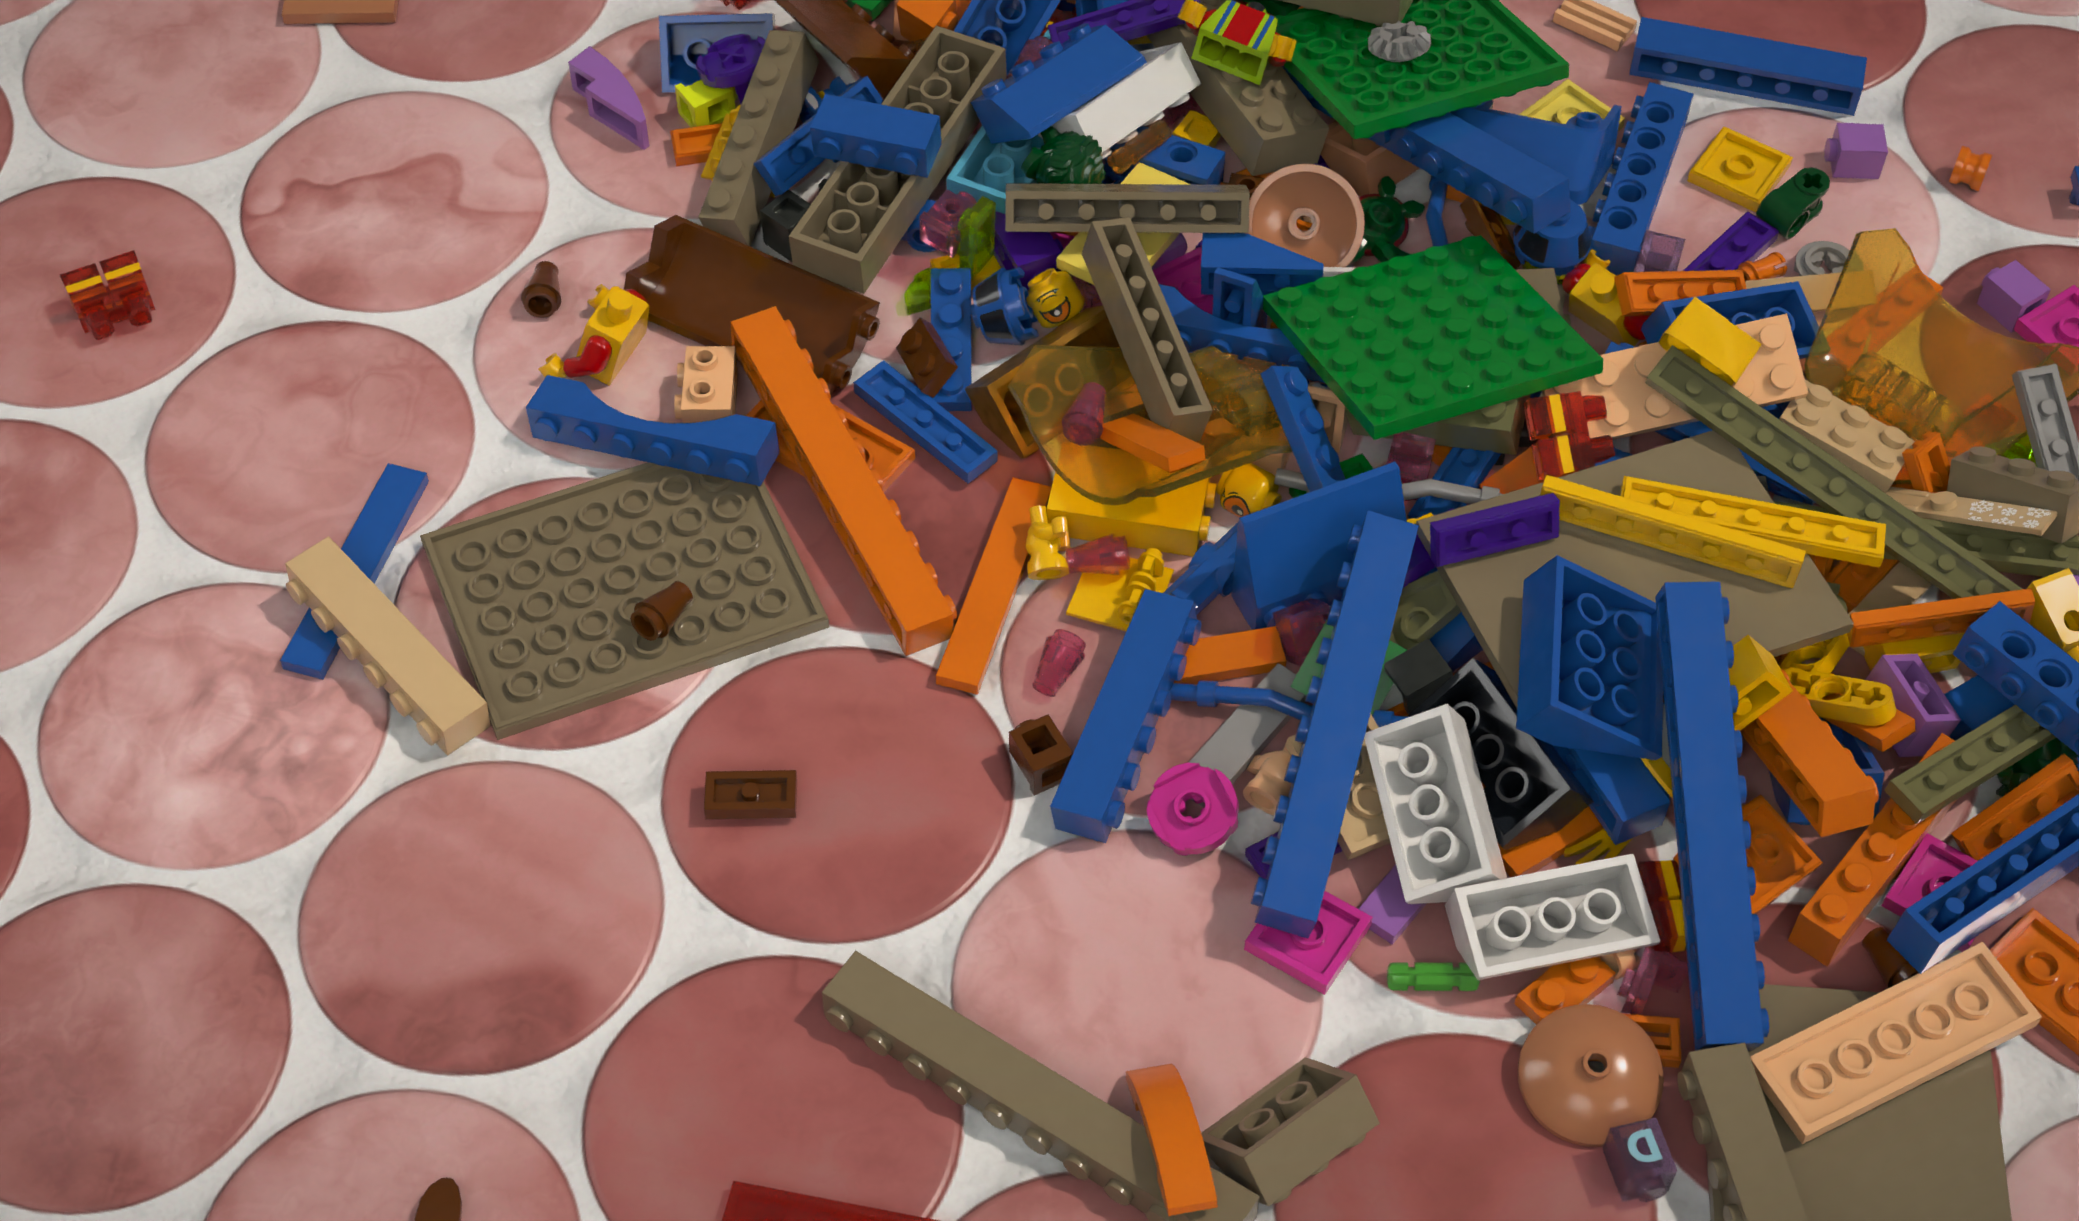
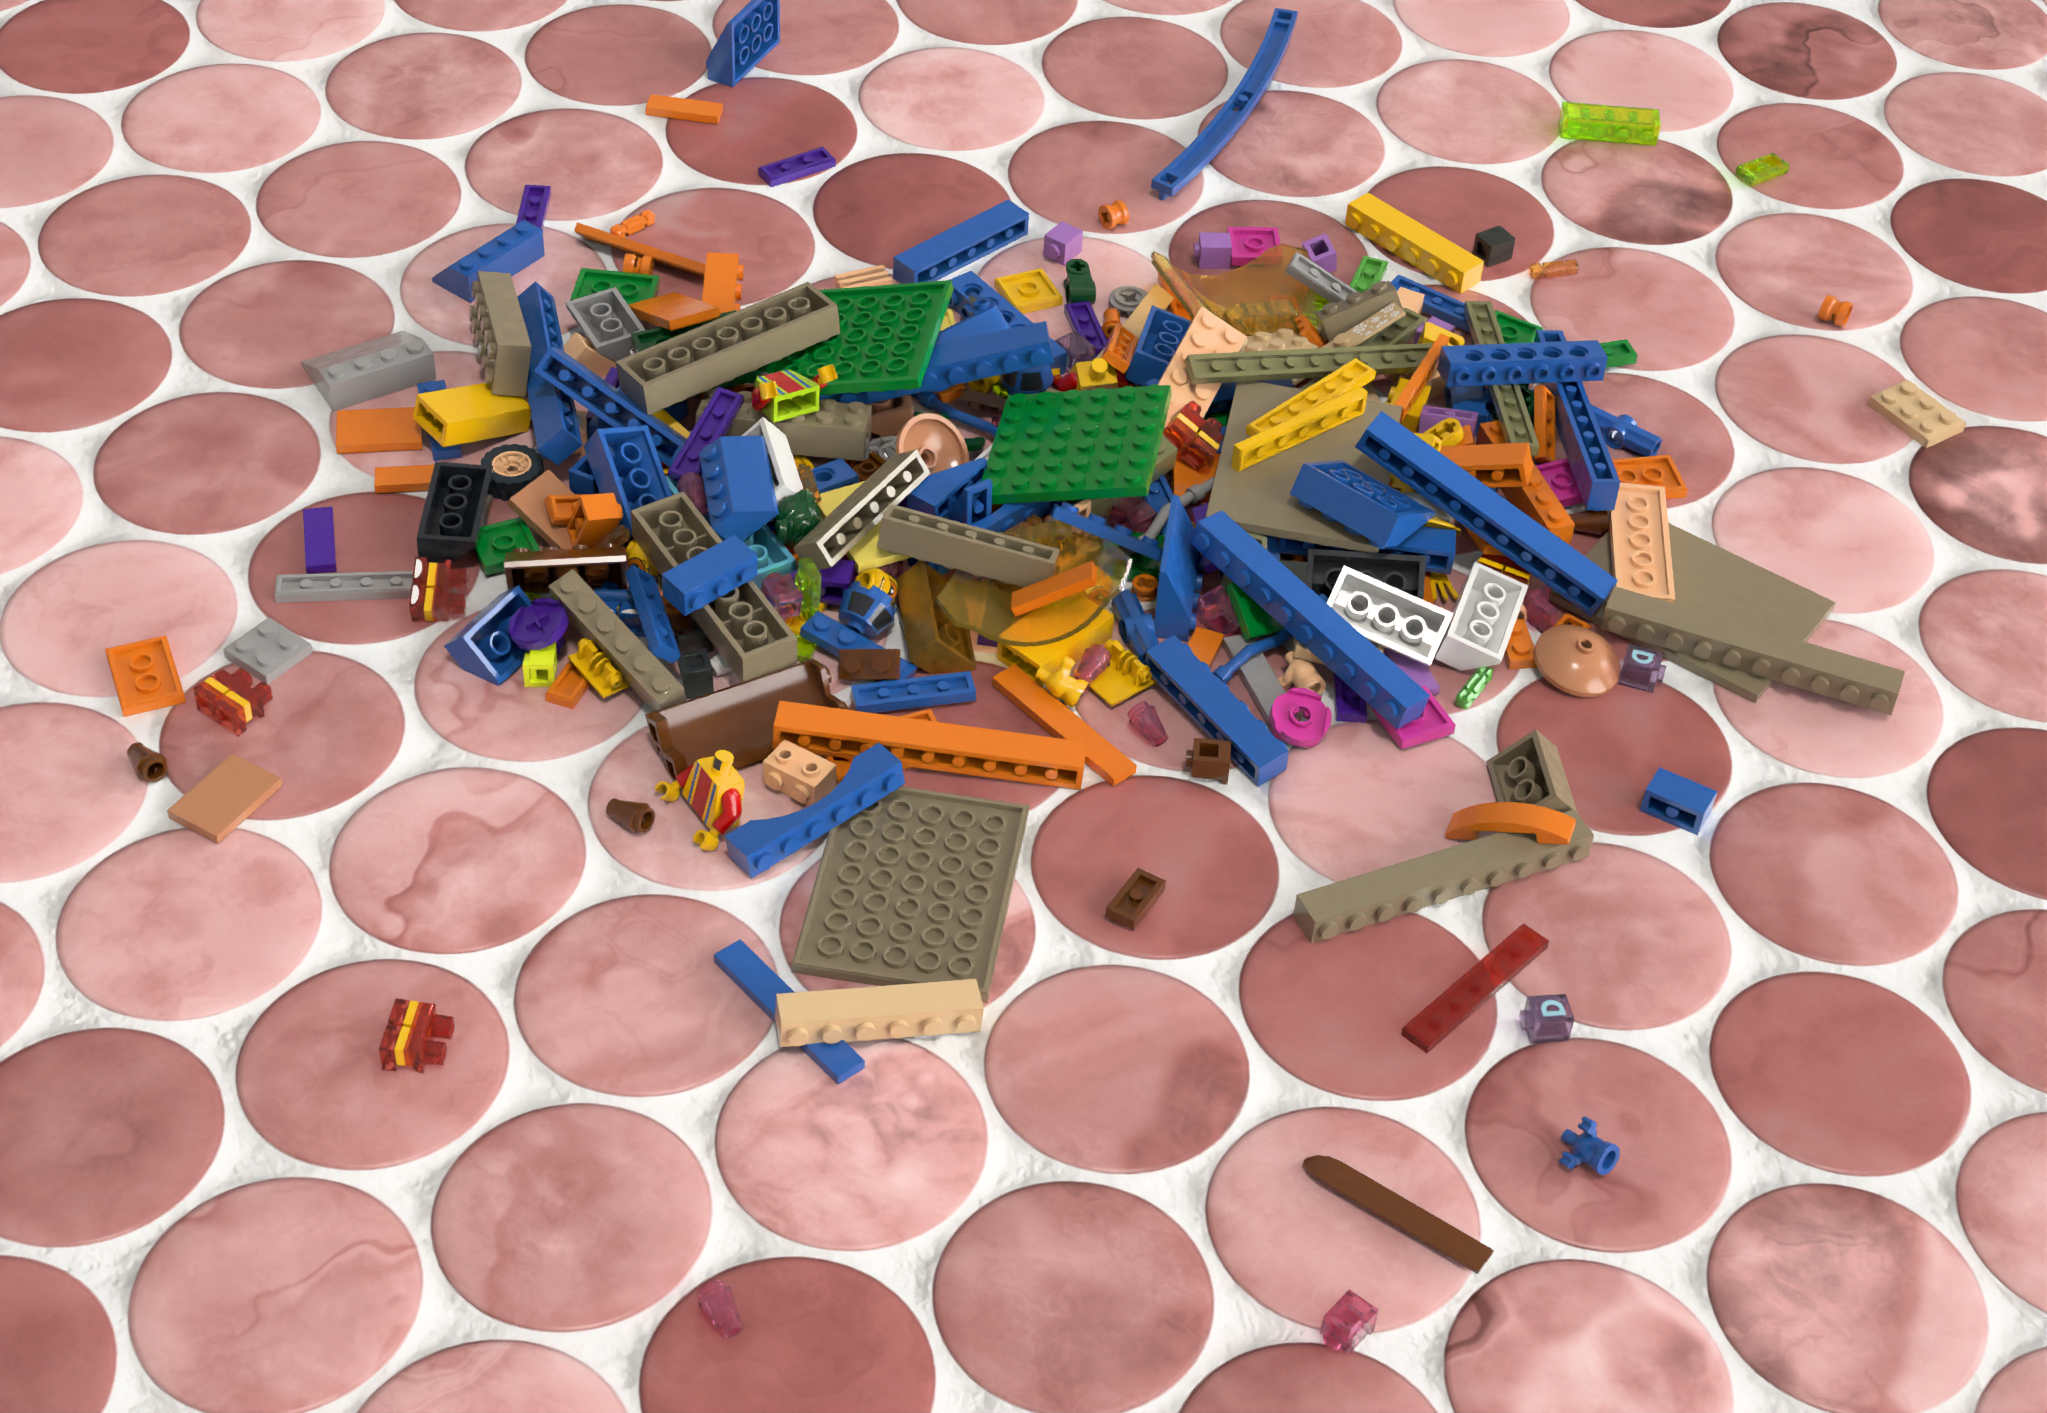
camera: 60 degrees left, 10 degrees down
(609, 96) = (489, 705): medium lavender slope -> none
(659, 612) = (969, 871): reddish brown cone -> none
(1085, 416) = (1006, 607): clear pink cone -> none
(1399, 41) = (849, 337): light grey gear -> none
(1494, 529) = (1247, 486): dark purple tile -> none
(1711, 341) = (1200, 338): yellow piece -> none

